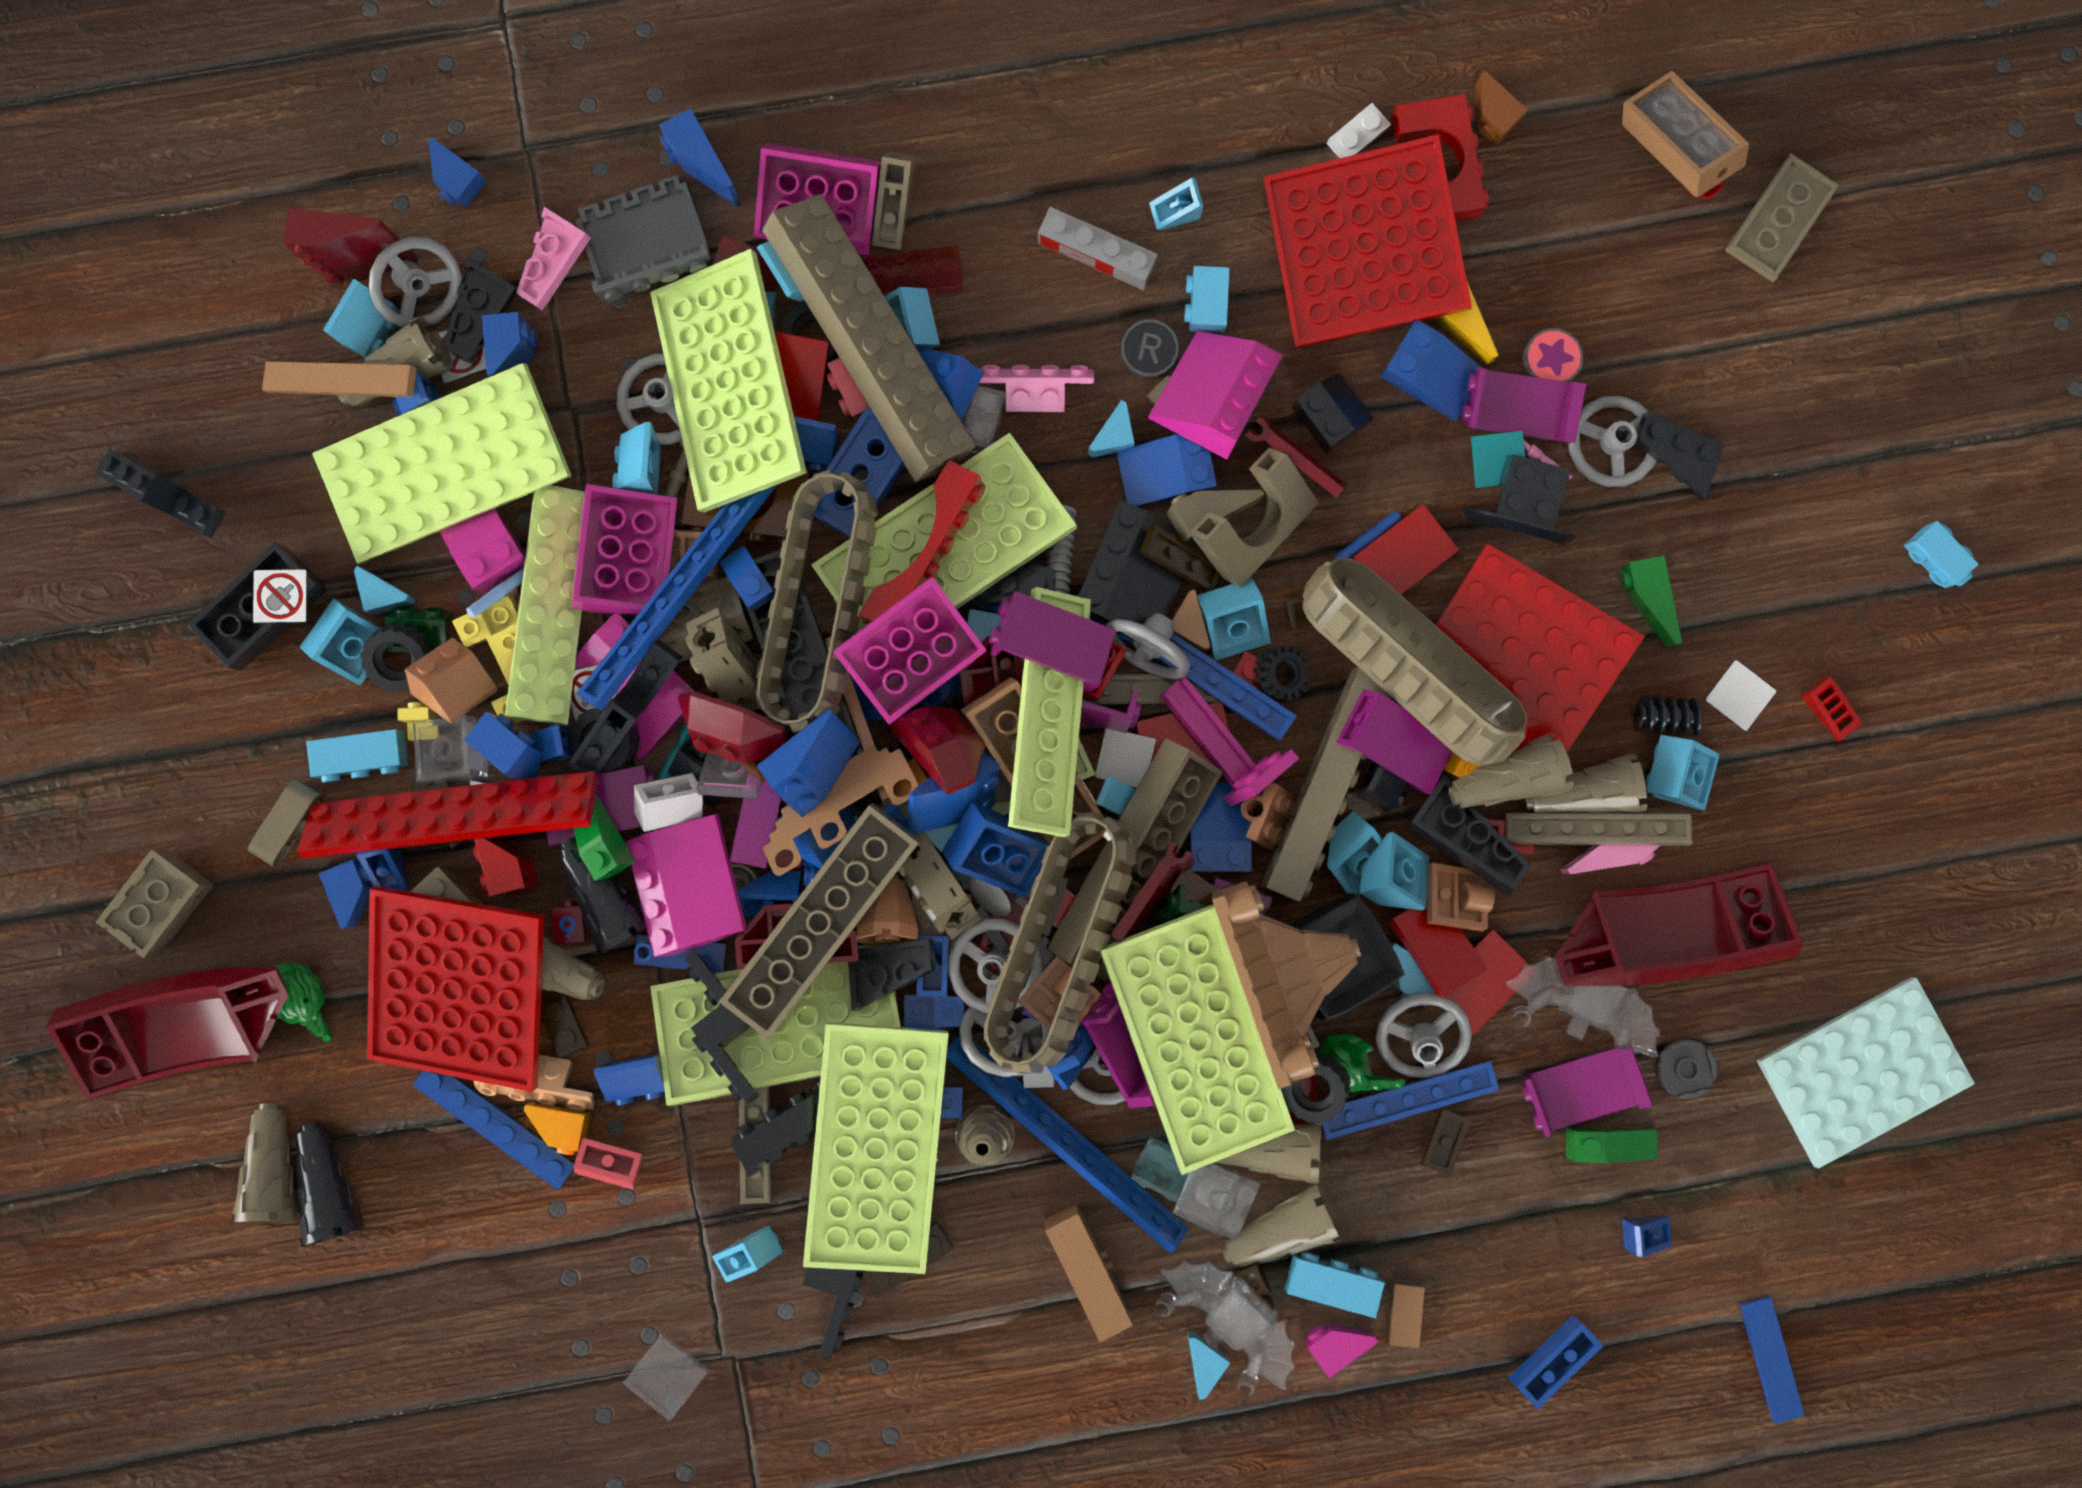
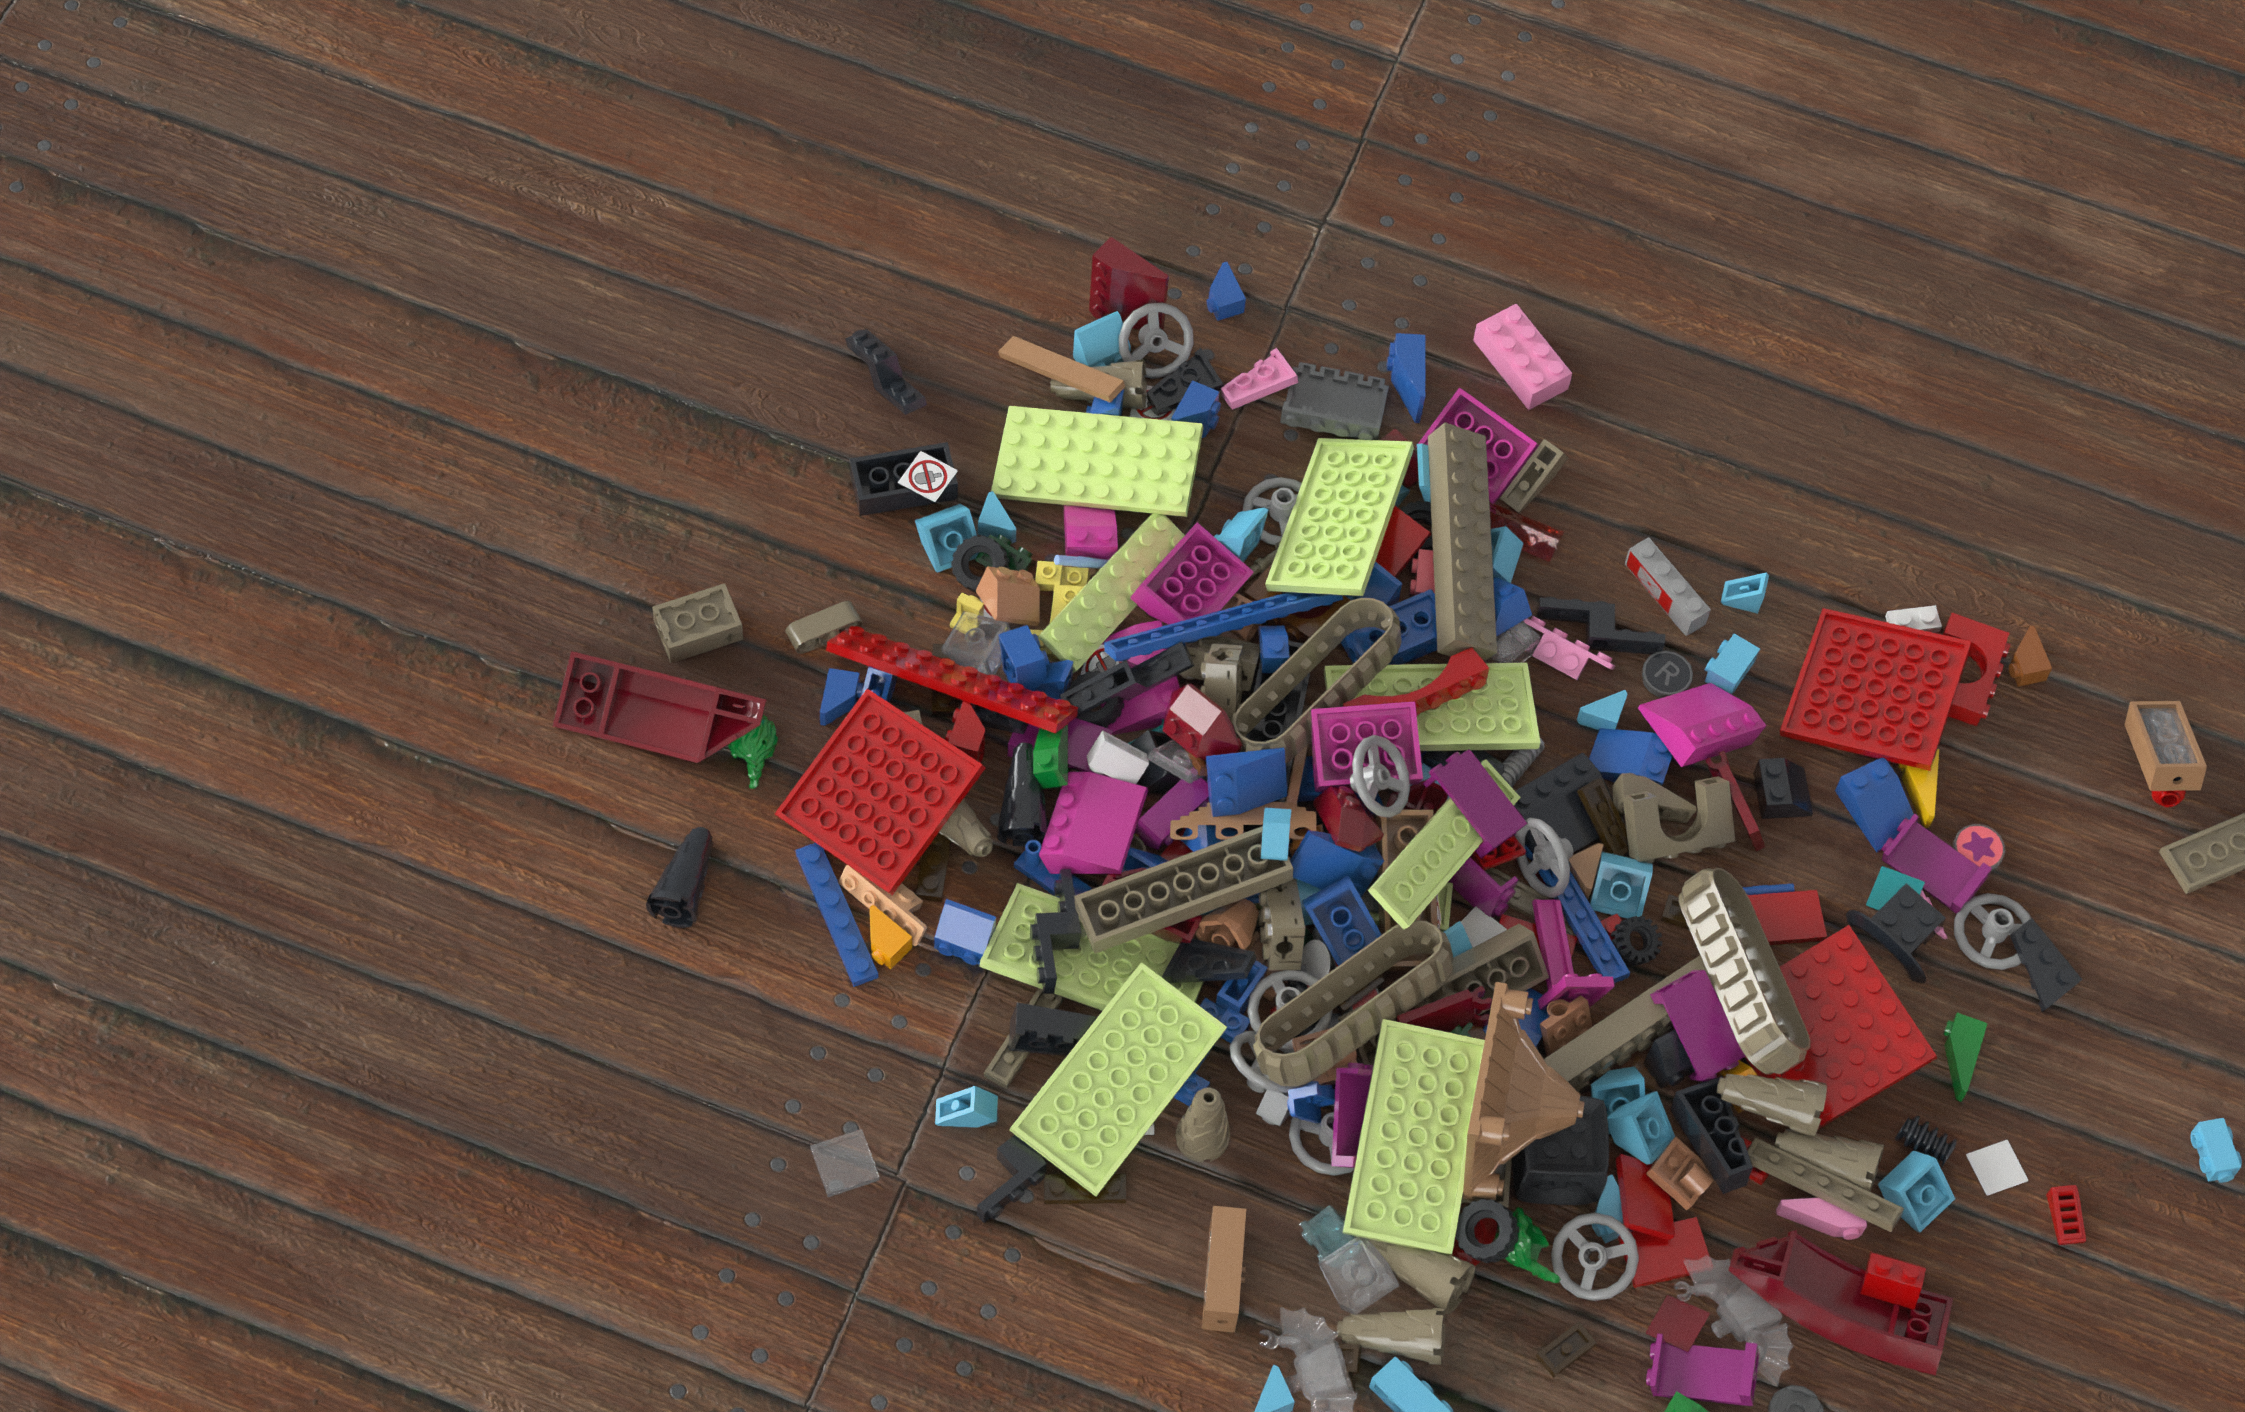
camera: 30 degrees right, 25 degrees down
(266, 1176) = (649, 844): dark tan cone -> none
(357, 755) = (907, 612): medium azure brick -> none
(569, 924) = (987, 807): dark red brick -> none
(608, 1163) = (906, 981): coral brick -> none
(801, 61) = (1522, 356): none -> bright pink brick
(879, 818) = (1276, 834): none -> medium azure slope
(944, 690) = (1376, 777): none -> light grey piece
(1054, 335) = (1600, 625): none -> black bracket
(1074, 1149) = (1264, 1176): blue plate -> none
(1412, 1099) = (1554, 1301): blue plate -> none
(1533, 1048) = (1678, 1323): none -> dark red sticker
(1711, 880) = (1893, 1280): none -> red slope

